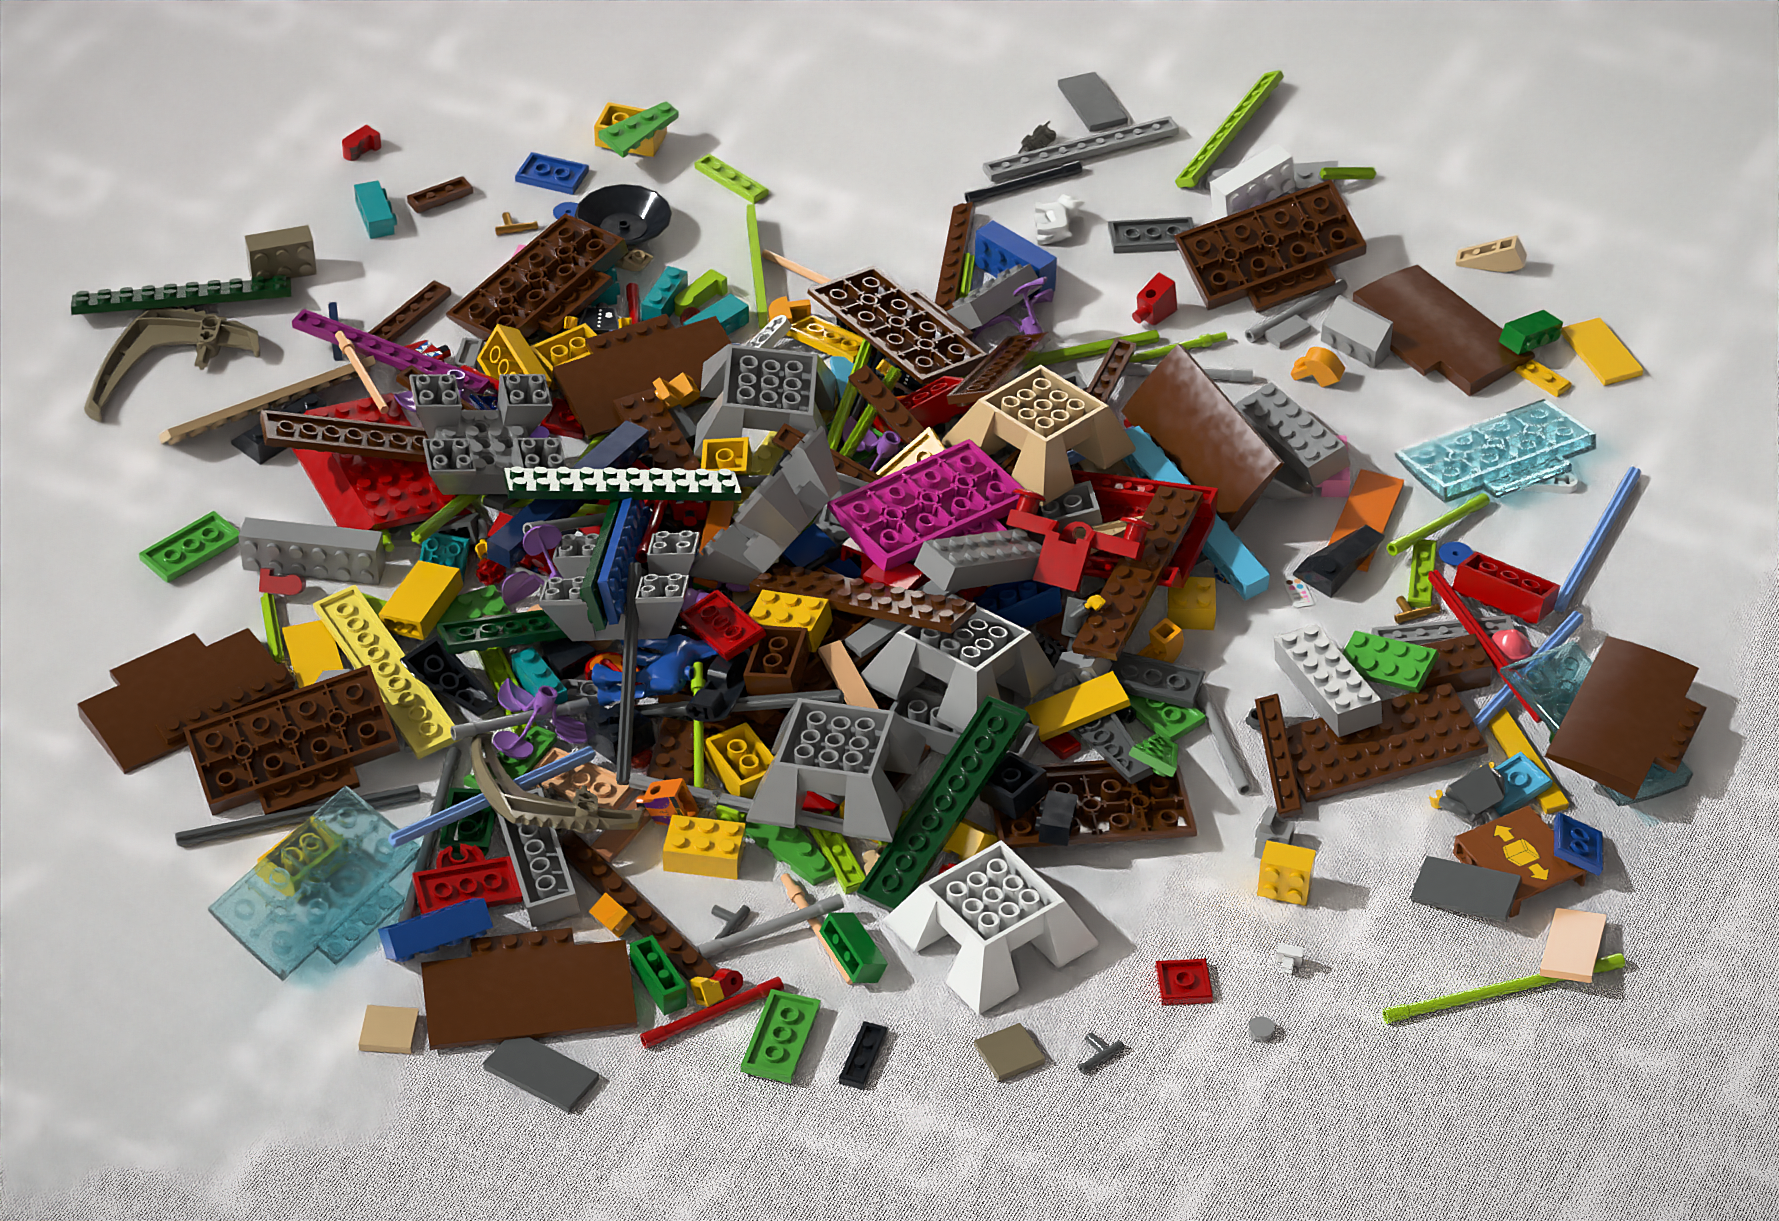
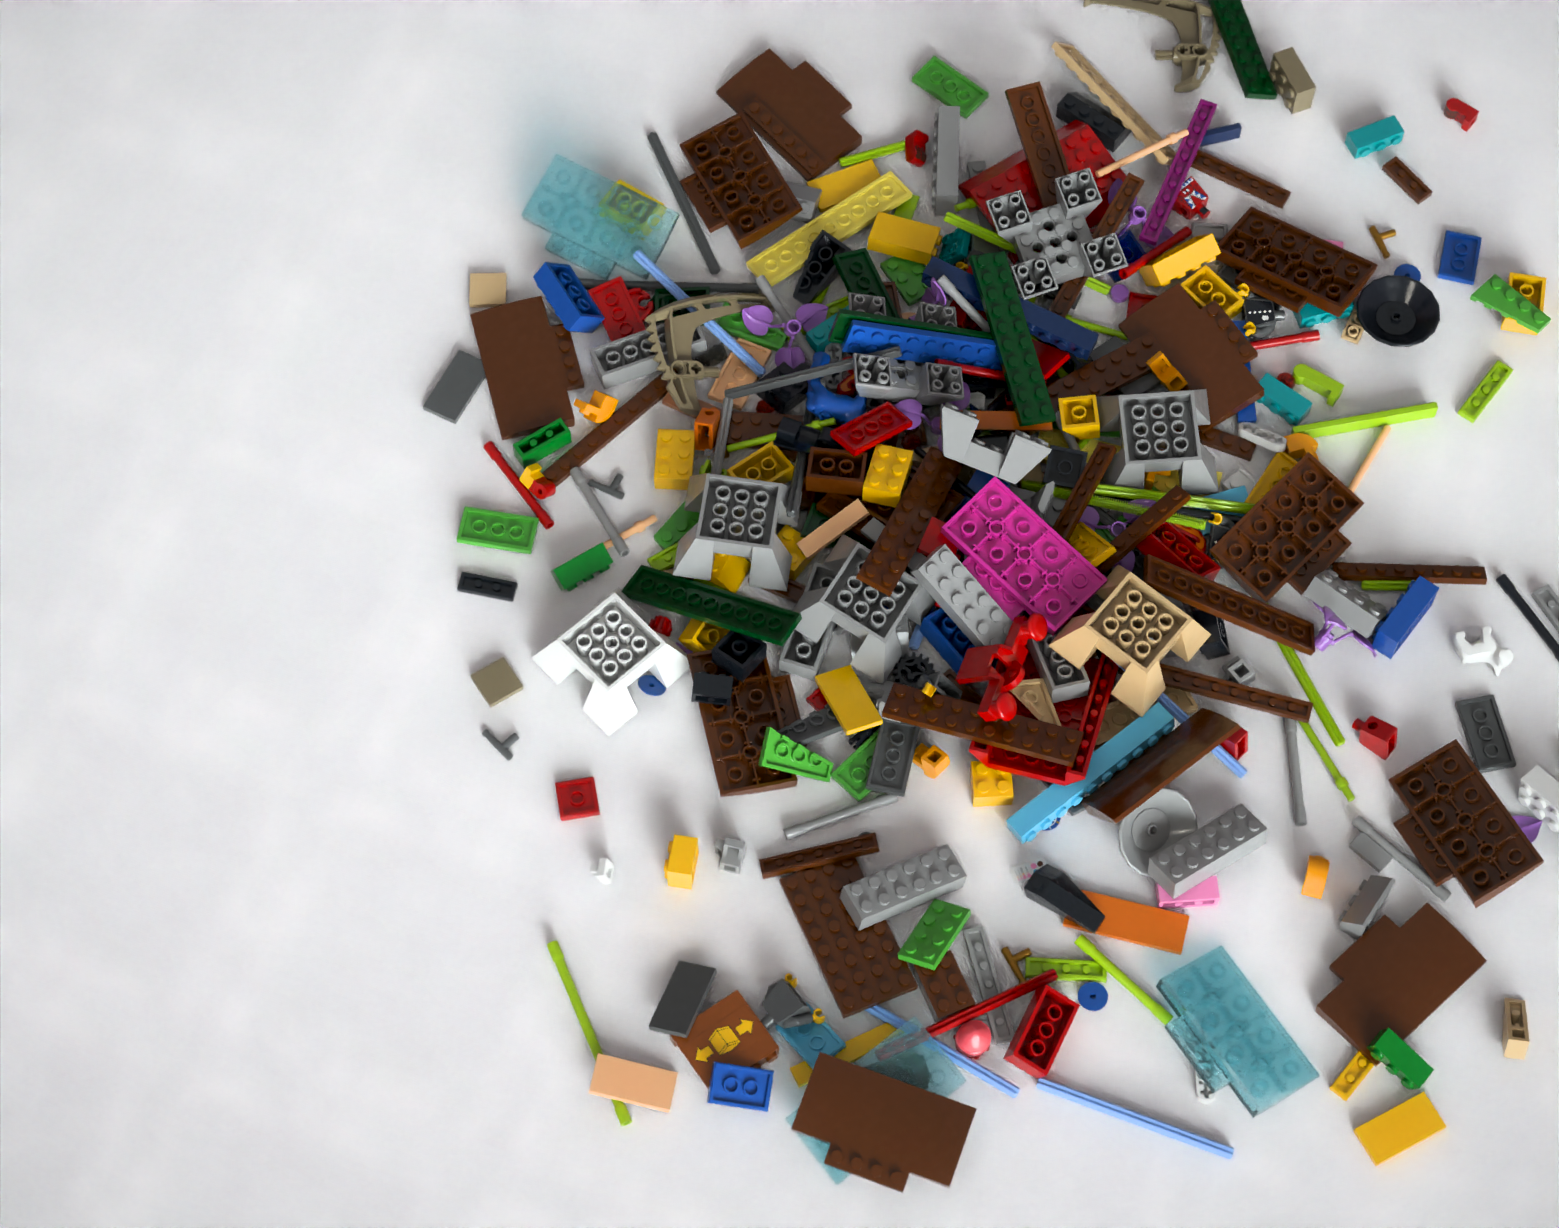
camera: 85 degrees right, 20 degrees up
(662, 295) = (1293, 353): teal brick -> none
(1261, 1029) = (533, 854): light grey tile -> none

